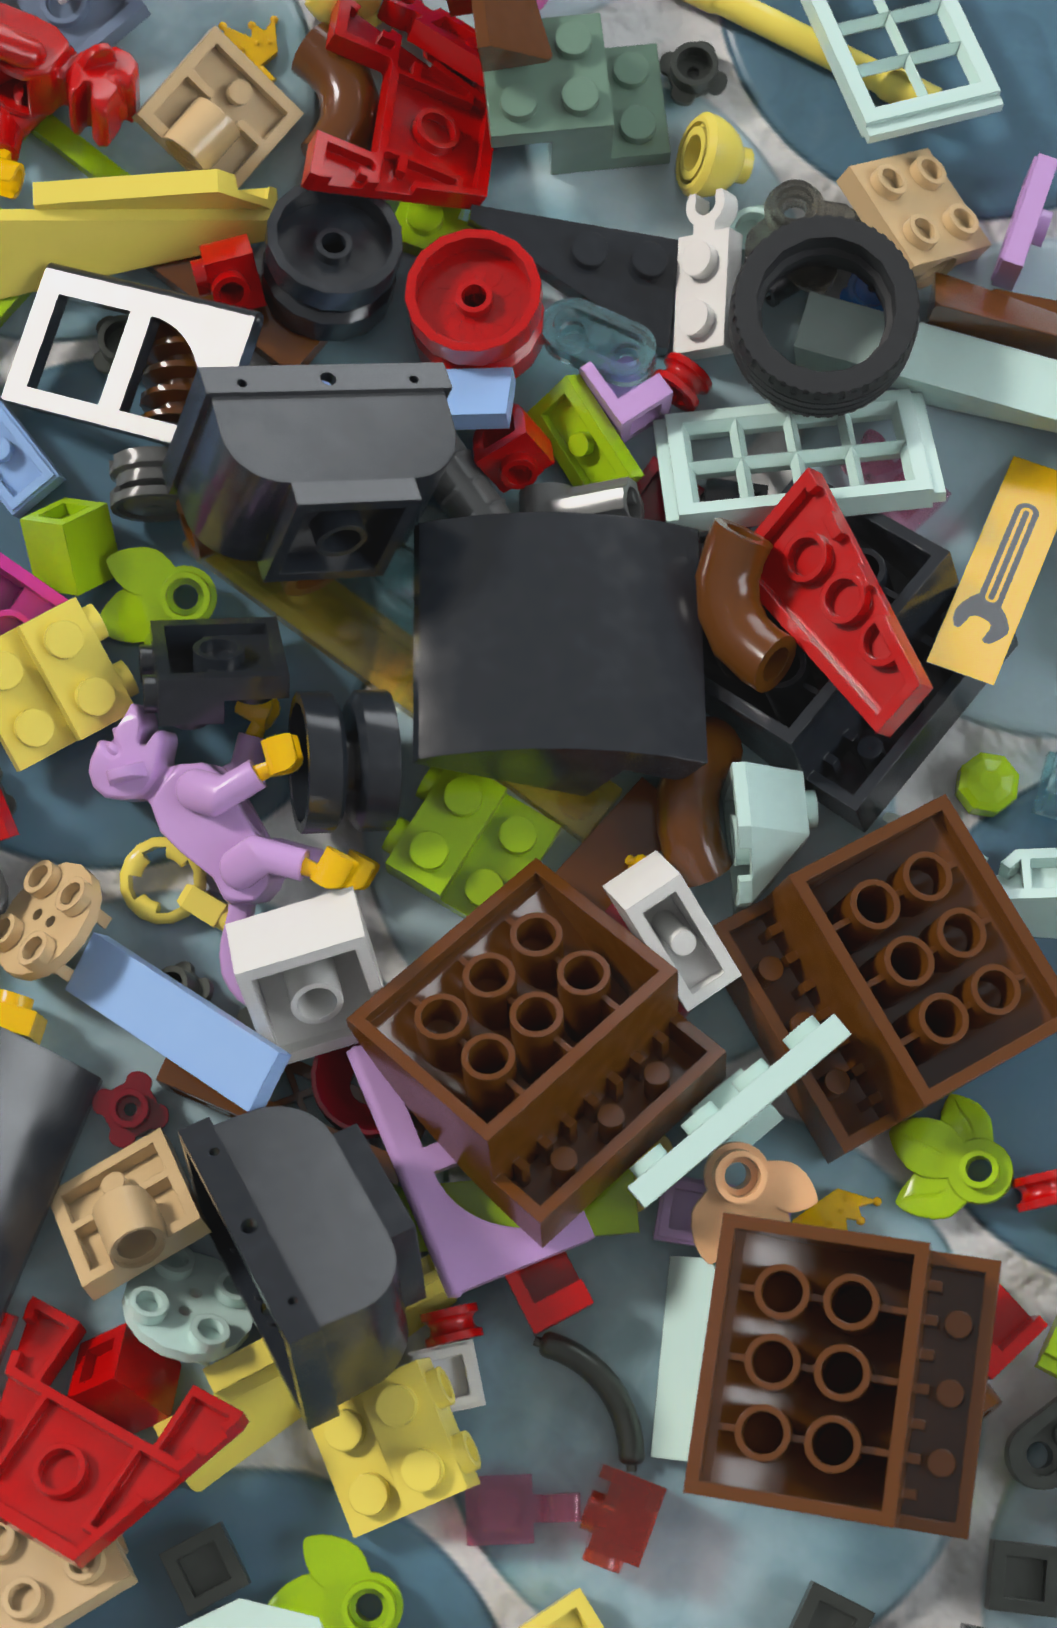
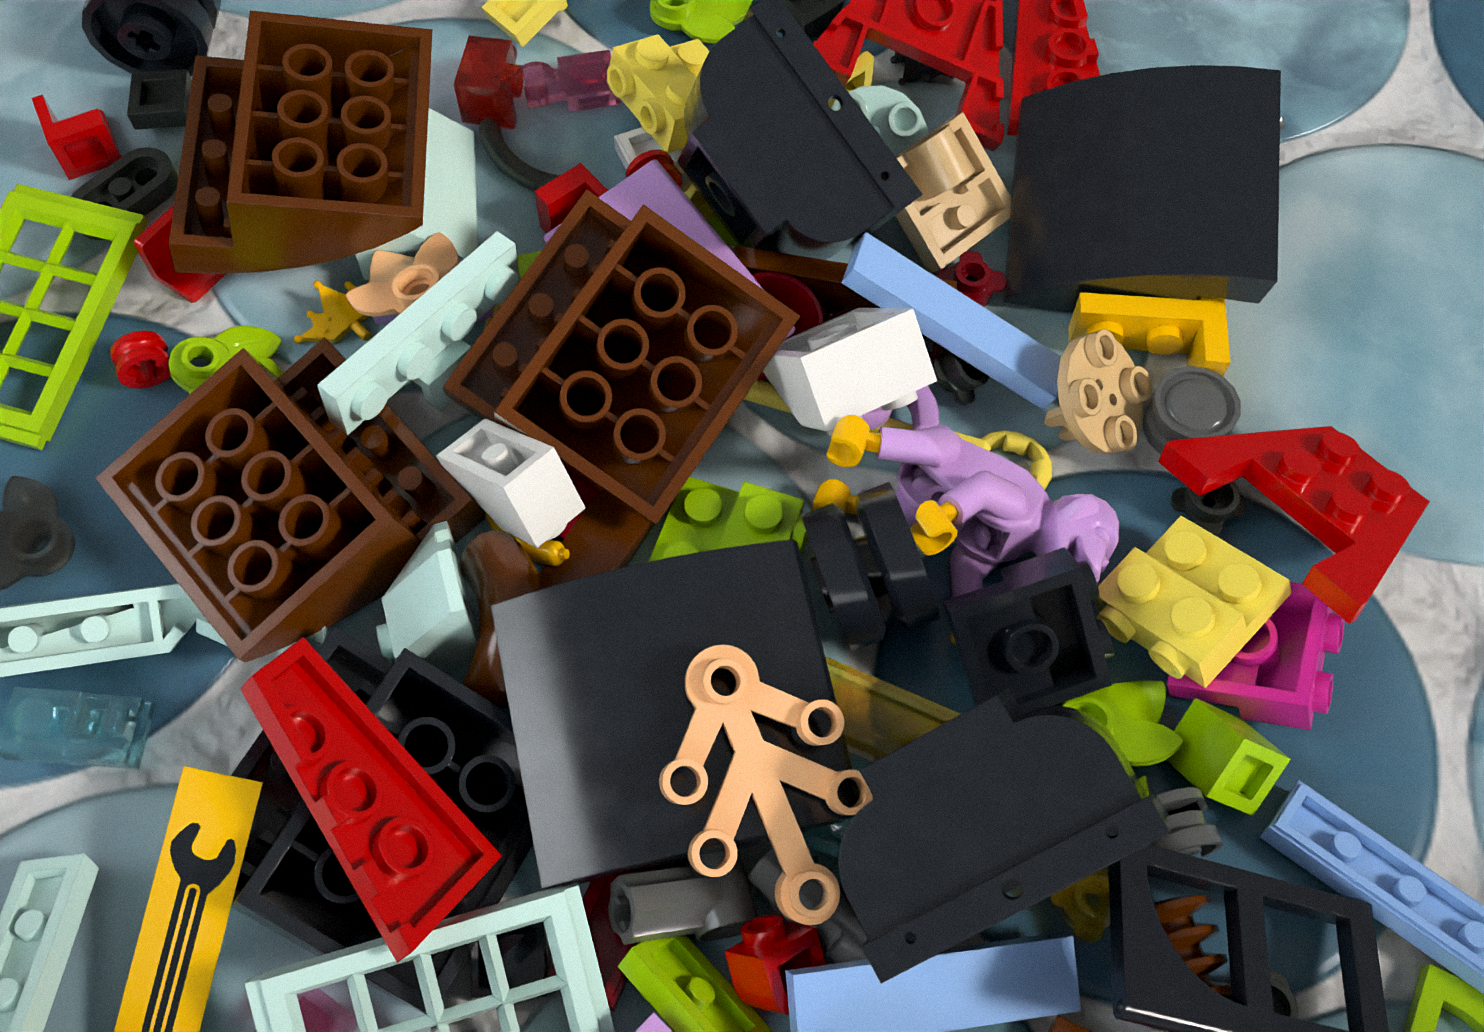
camera: 170 degrees right, 15 degrees down
(124, 1380) = (923, 86): red panel -> none
(498, 554) = (757, 771): none -> light nougat plant
(732, 606) = (488, 790): reddish brown cylinder -> none
(986, 784) = (202, 714): lime tile -> none

